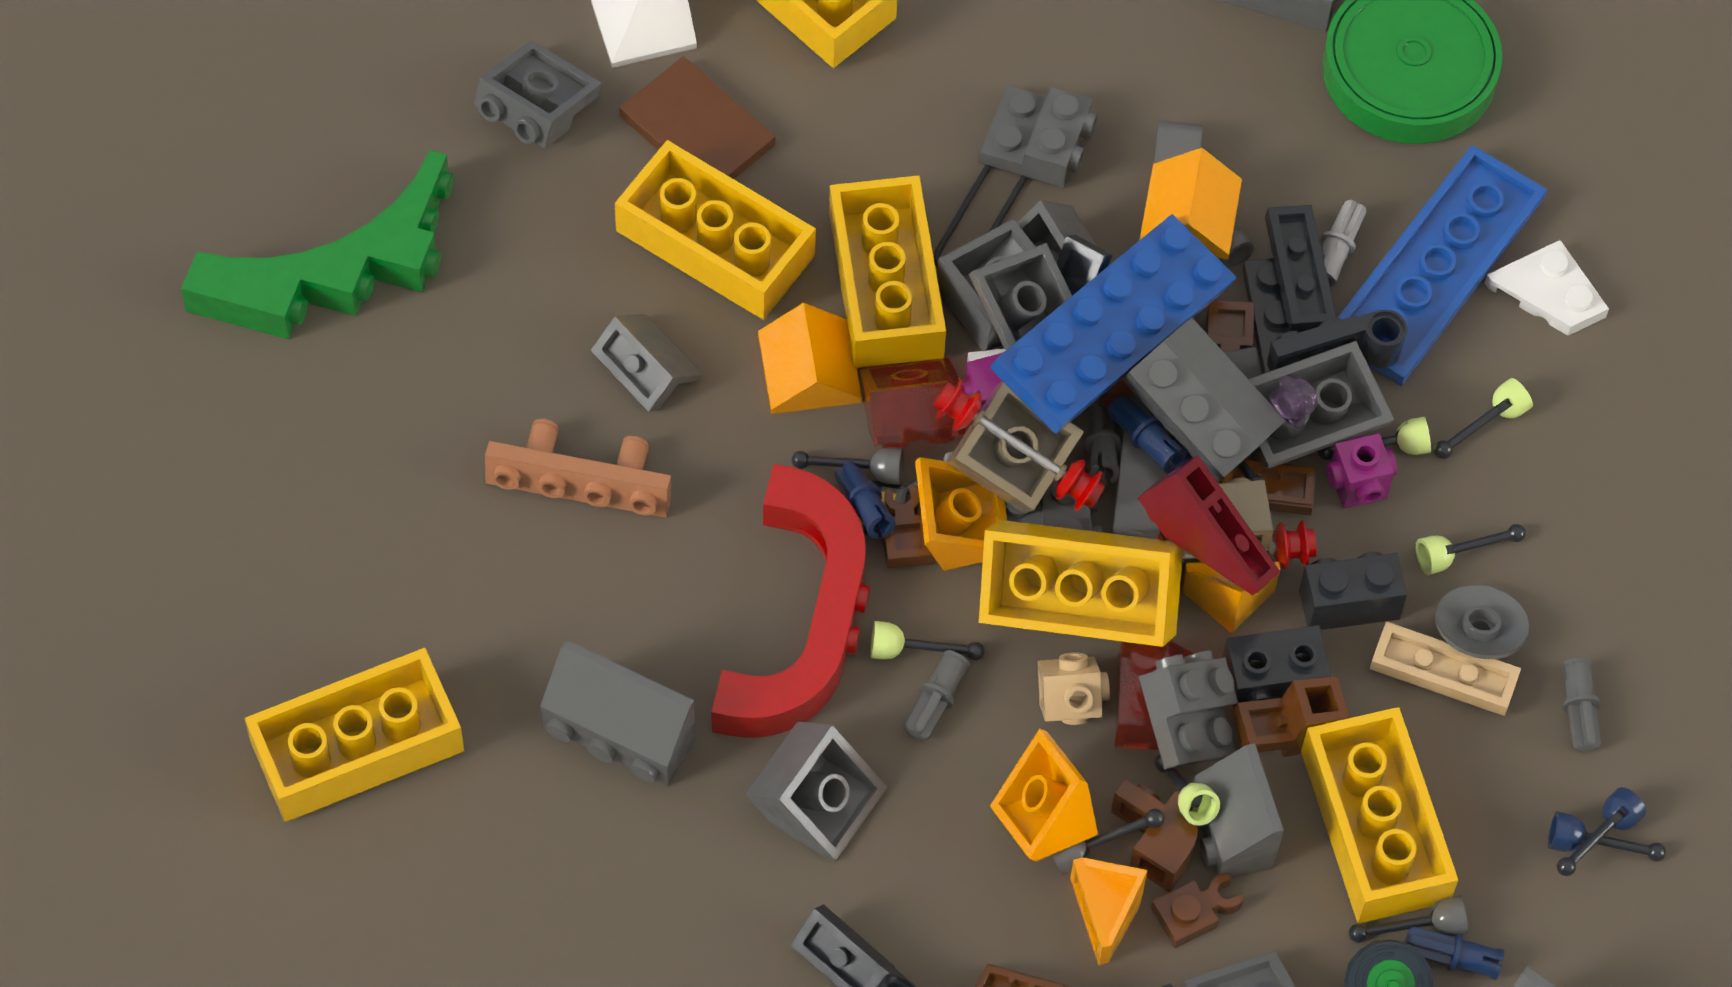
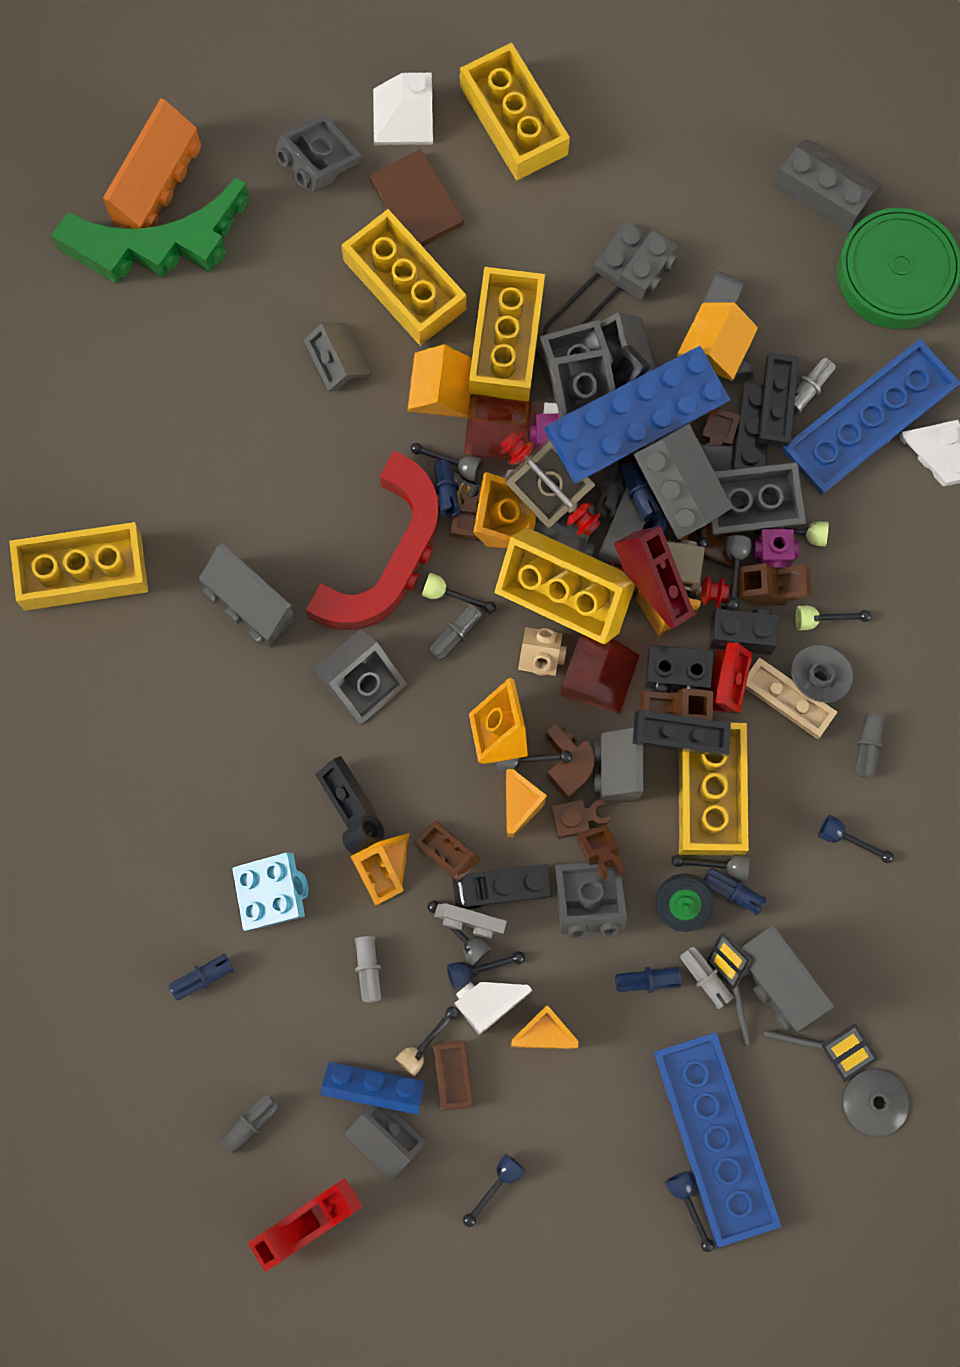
camera: 15 degrees right, 15 degrees up
(305, 165) = (152, 169): none -> orange slope
(579, 479) = (259, 423): nougat plate -> none
(1188, 707) = (611, 688): dark grey plate -> none
(1195, 795) = (598, 749): yellowish green hinge -> none
(1241, 938) = (601, 848): none -> reddish brown plate
(1294, 400) = (742, 495): clear purple plate -> none
(1308, 479) = (737, 549): none -> hinge
(1313, 736) = (681, 733): none -> black plate
(1336, 332) = (785, 453): black plate -> none
(1355, 656) = (730, 678): none -> red panel
(1373, 522) = (771, 586): none -> reddish brown brick
(1508, 401) = (888, 524): hinge -> none
(1621, 811) = (871, 825): hinge -> none

